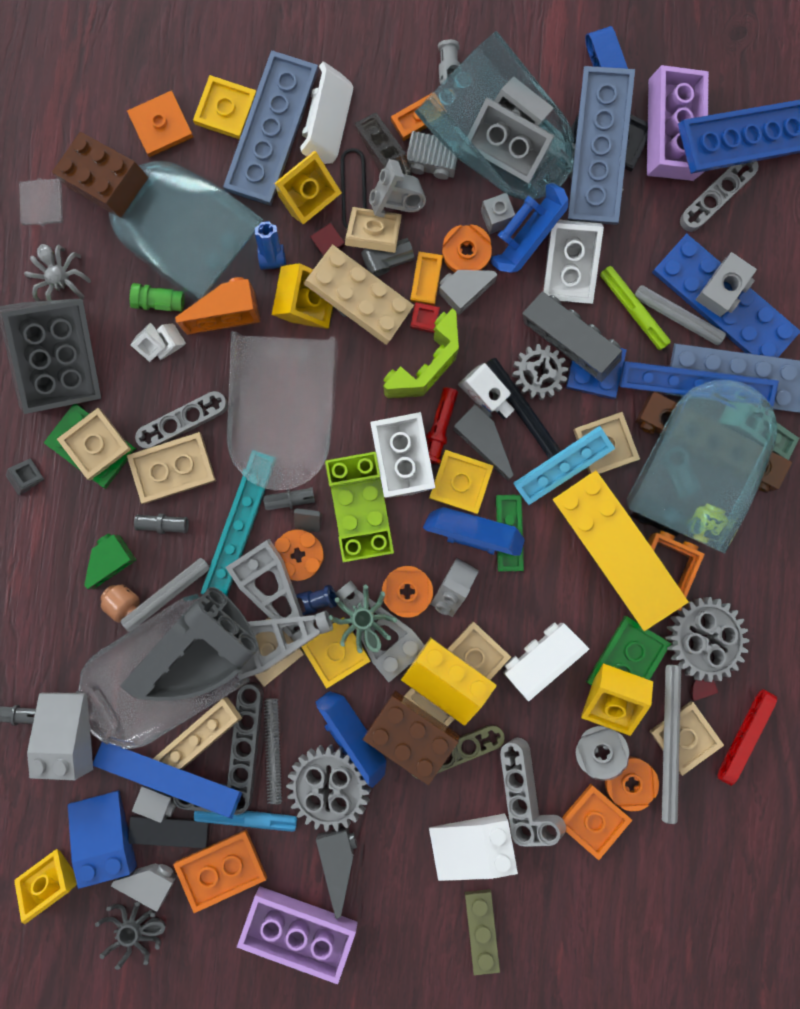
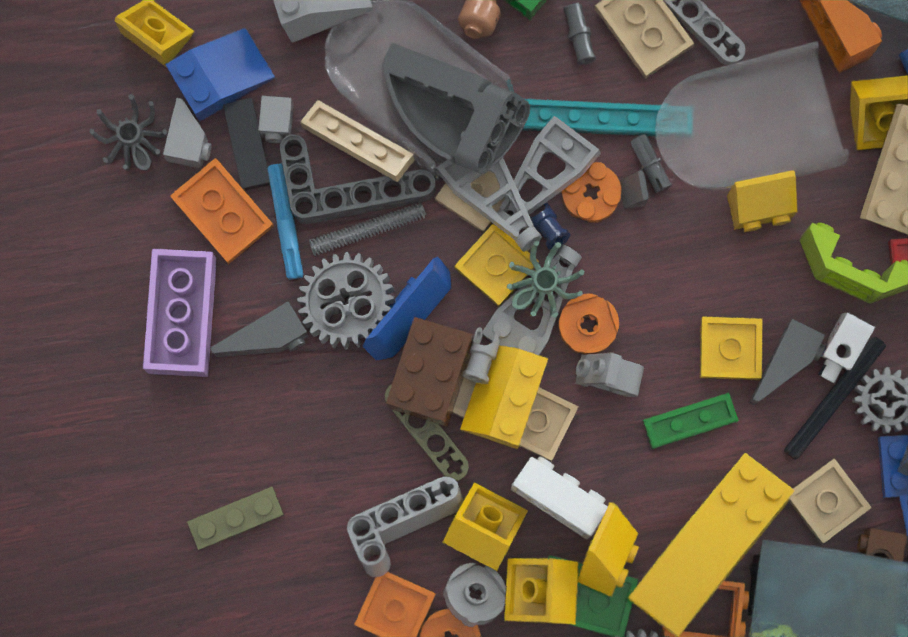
camera: 70 degrees right, 5 degrees down
(165, 594) = (505, 61): light grey axle -> none
(168, 779) = (307, 122): blue tile -> none
(349, 417) = (763, 201): none -> yellow slope
(359, 507) = (668, 242): lime slope -> none
(402, 455) = (740, 271): white slope -> none
(412, 691) = (481, 357): none -> light grey piece
(436, 437) = (771, 306): red pin -> none
(473, 849) = (325, 480): white slope -> none
(475, 531) = (680, 379): blue piece -> none
(548, 727) = (485, 526): none -> yellow slope
(564, 465) = (788, 457): medium azure plate -> none
(602, 635) = (609, 552): none -> yellow slope

